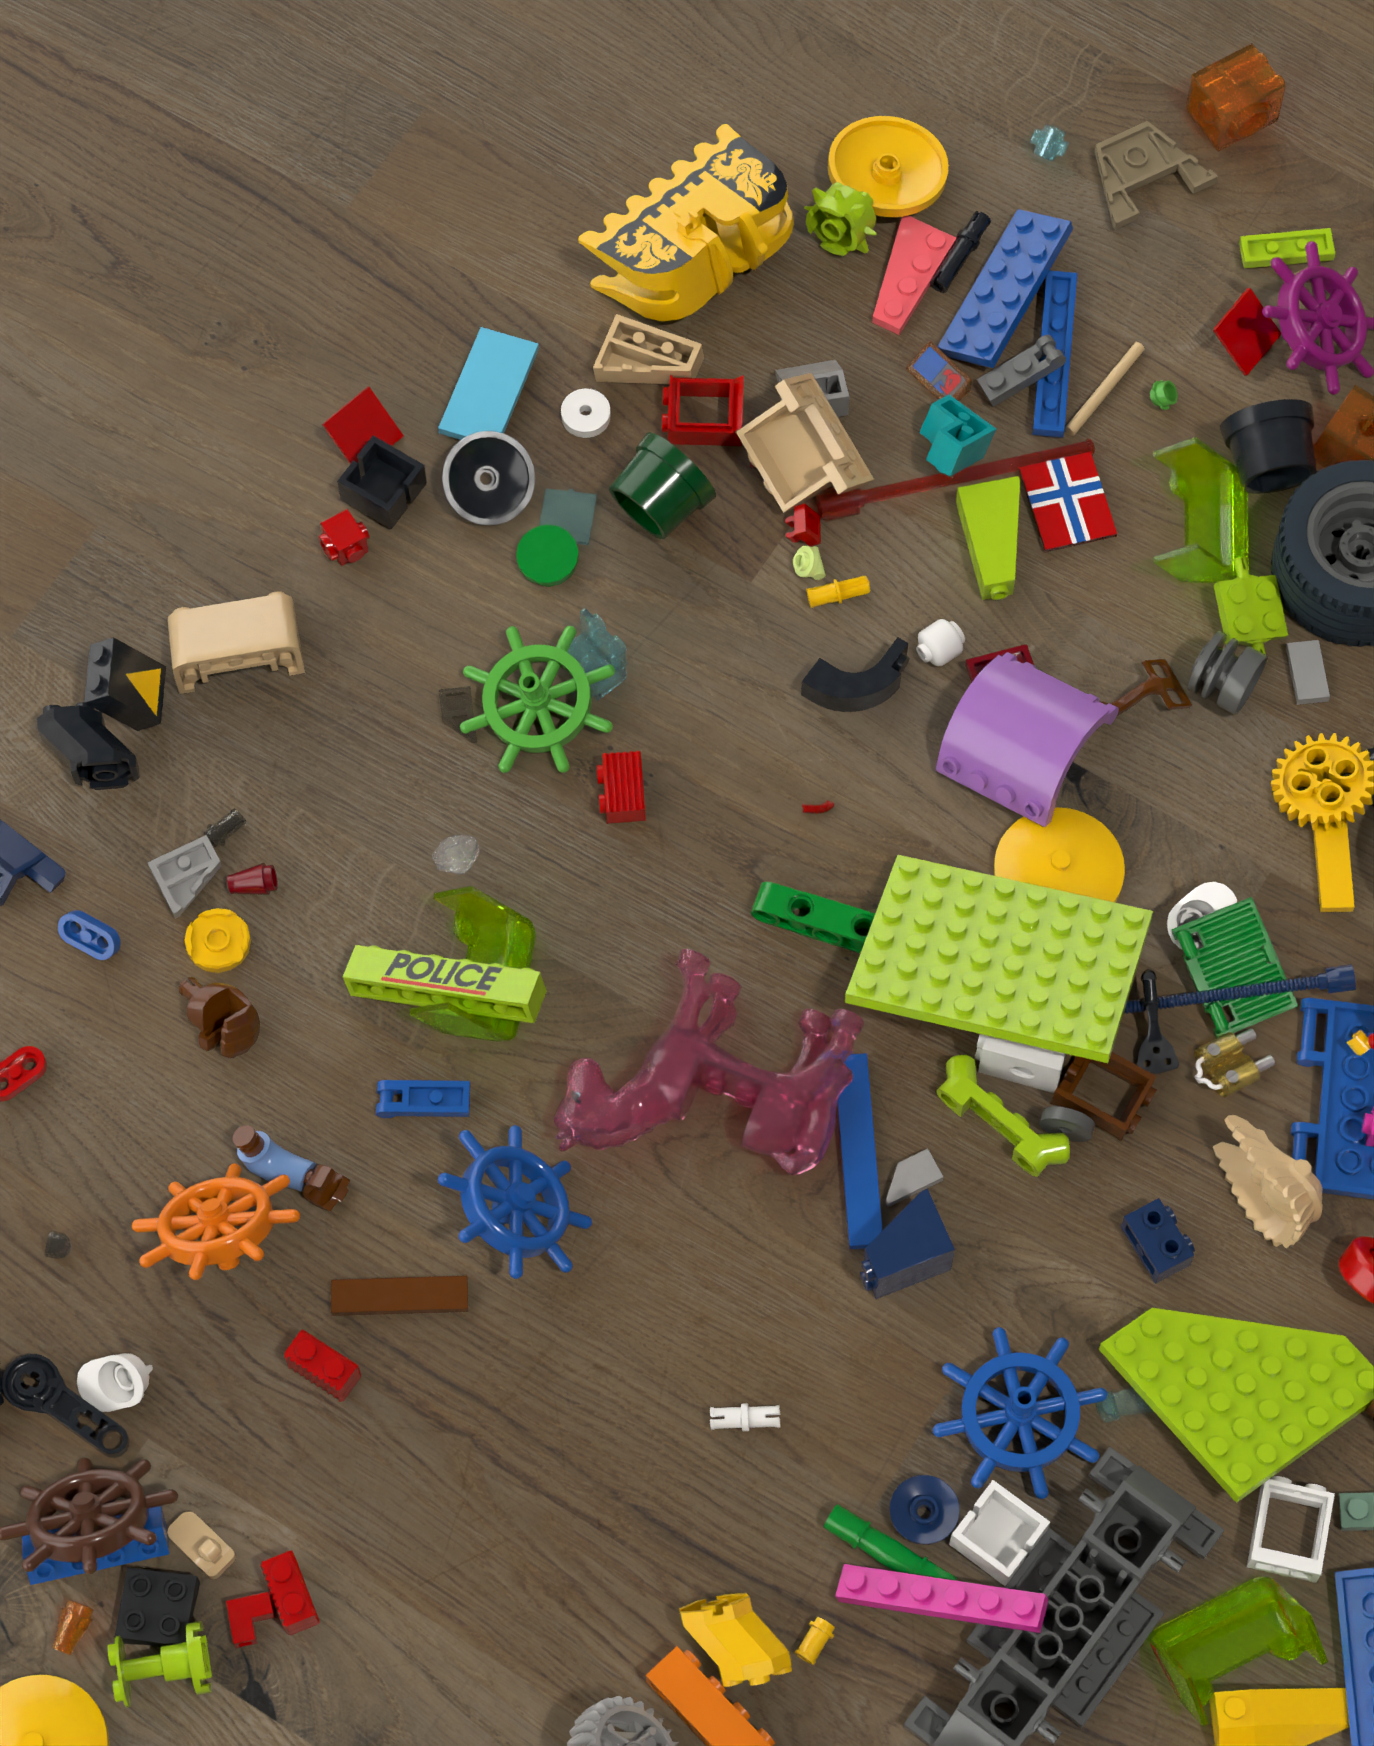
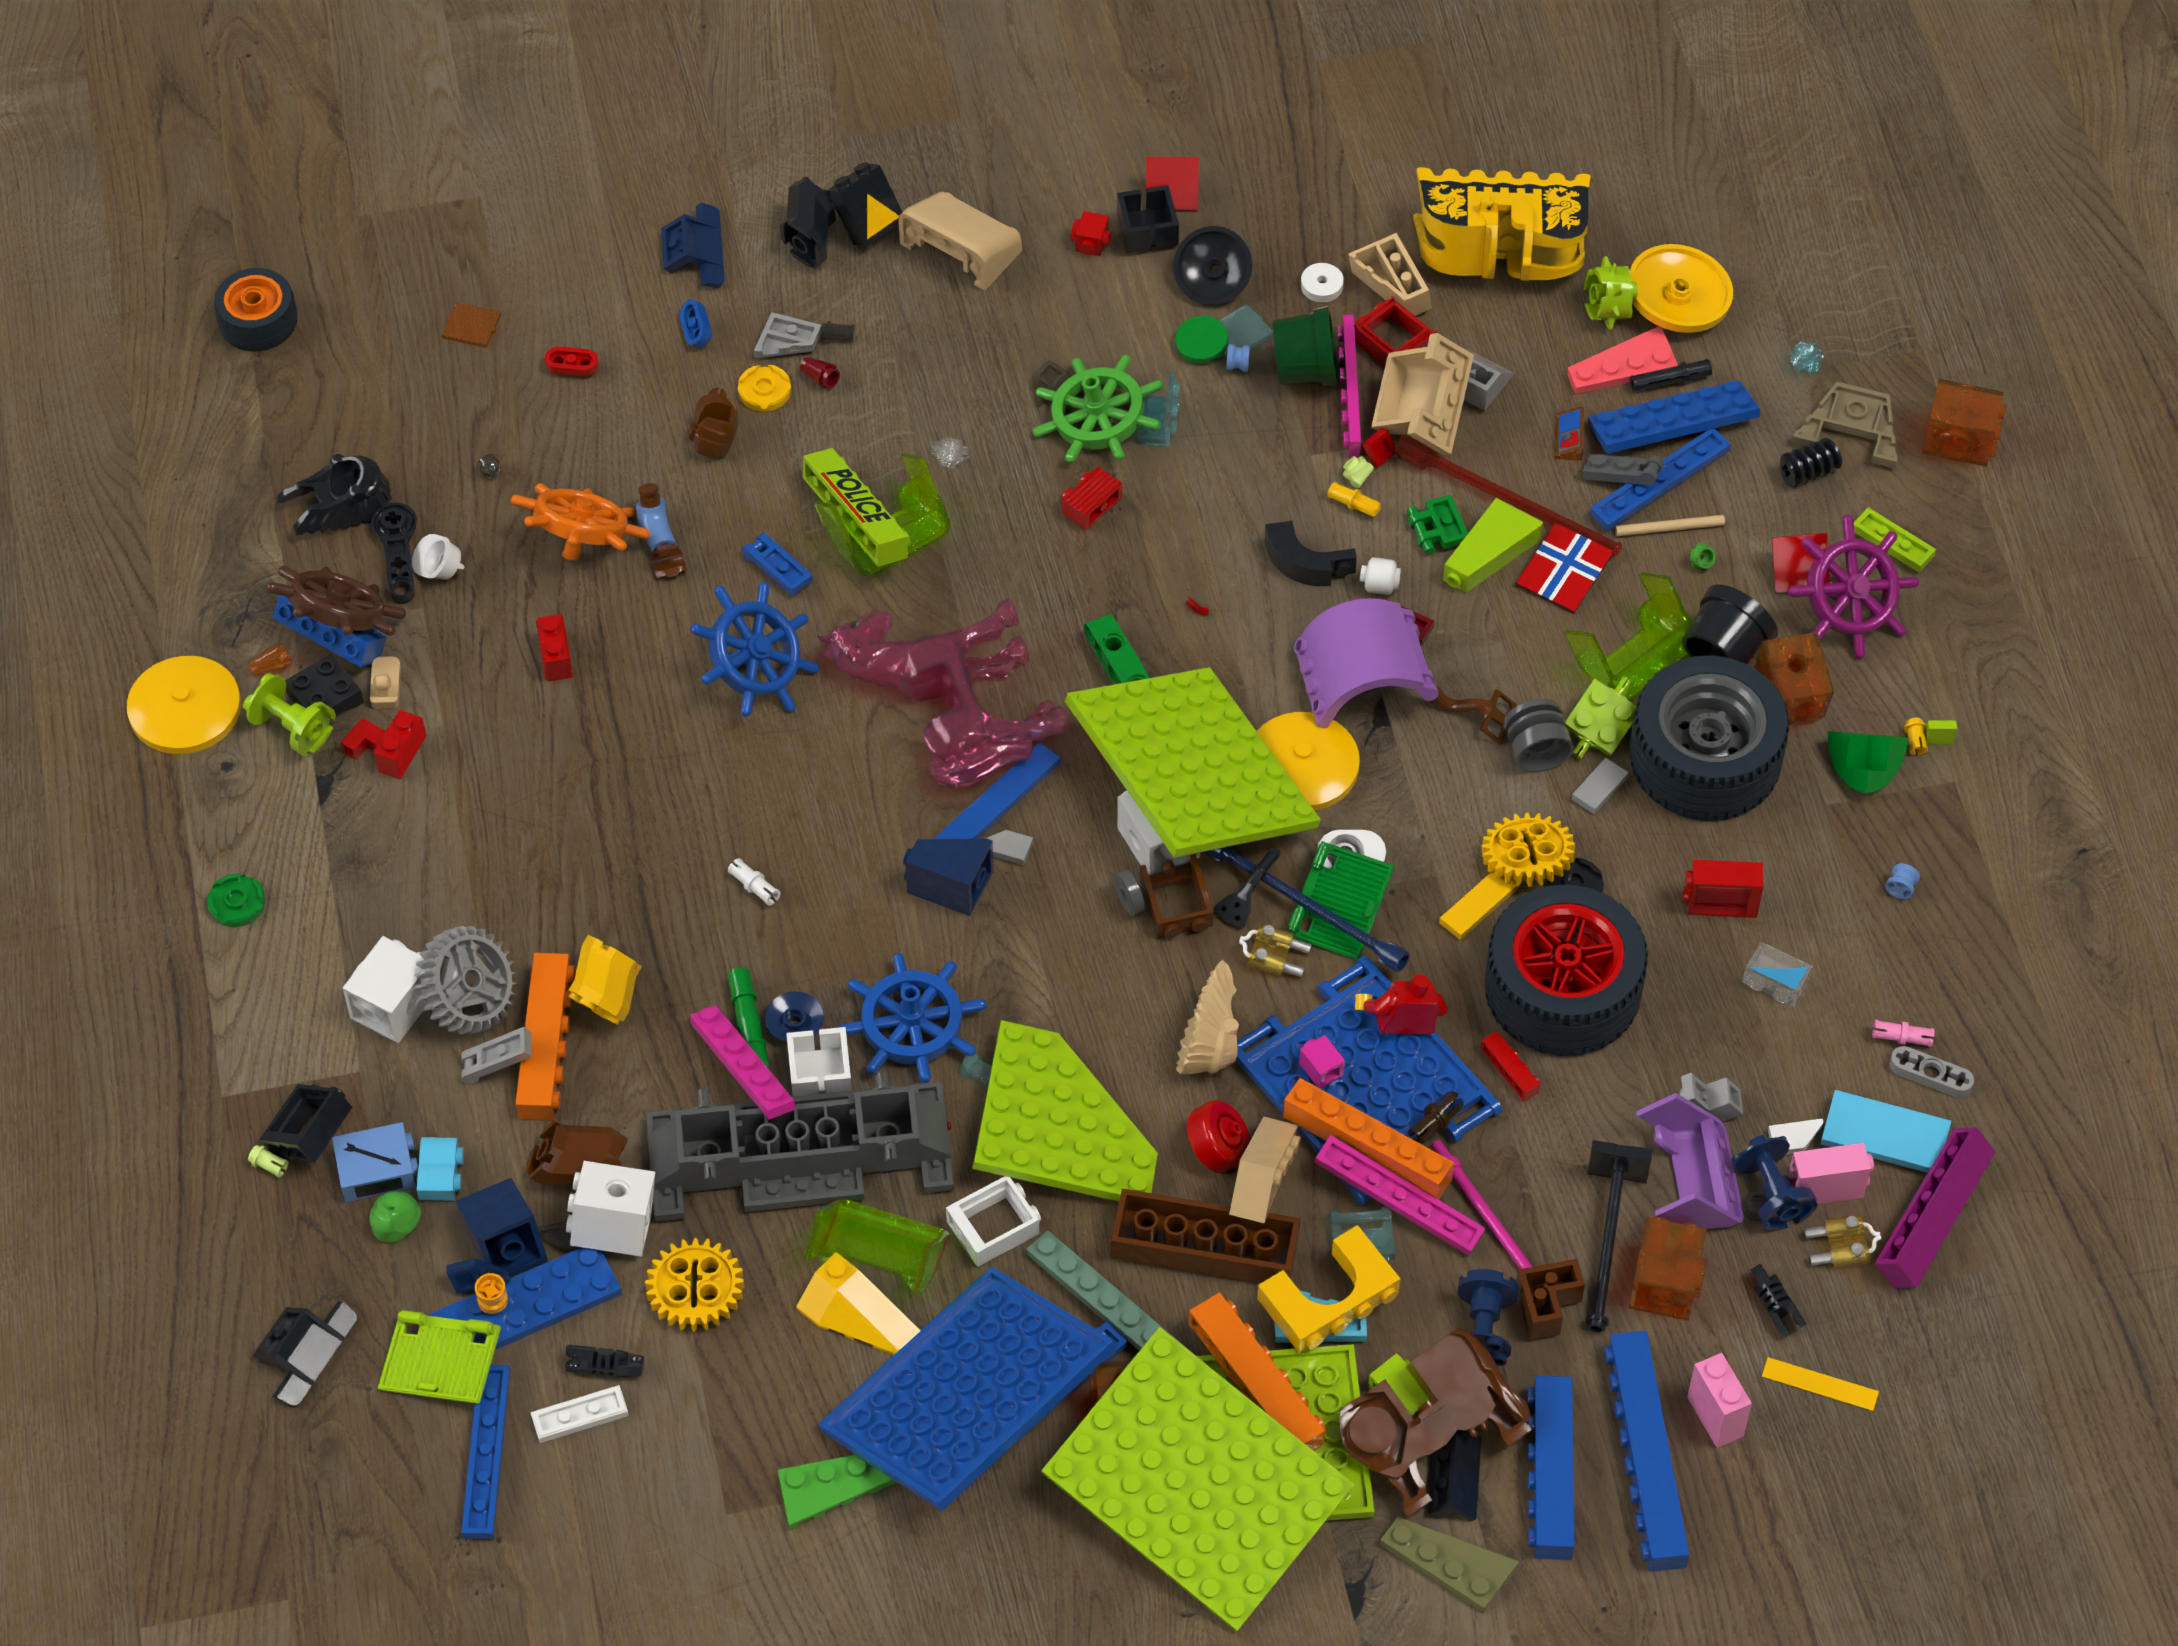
camera: 45 degrees right, 10 degrees down
(399, 1295) = (641, 653): reddish brown tile -> none
(488, 384) = (1281, 219): medium azure tile -> none
(599, 545) = (1238, 358): none -> medium blue wheel
(735, 501) = (1349, 395): none -> dark pink plate
(815, 1640) = (651, 1028): yellow pin -> none
(933, 545) = (1445, 520): none -> green plate
(956, 435) = (1530, 470): teal brick -> none
(1032, 1150) = (1092, 890): lime plate -> none
(1154, 235) = (1810, 460): none -> black piece
(1158, 1240) = (1108, 1002): dark blue brick -> none

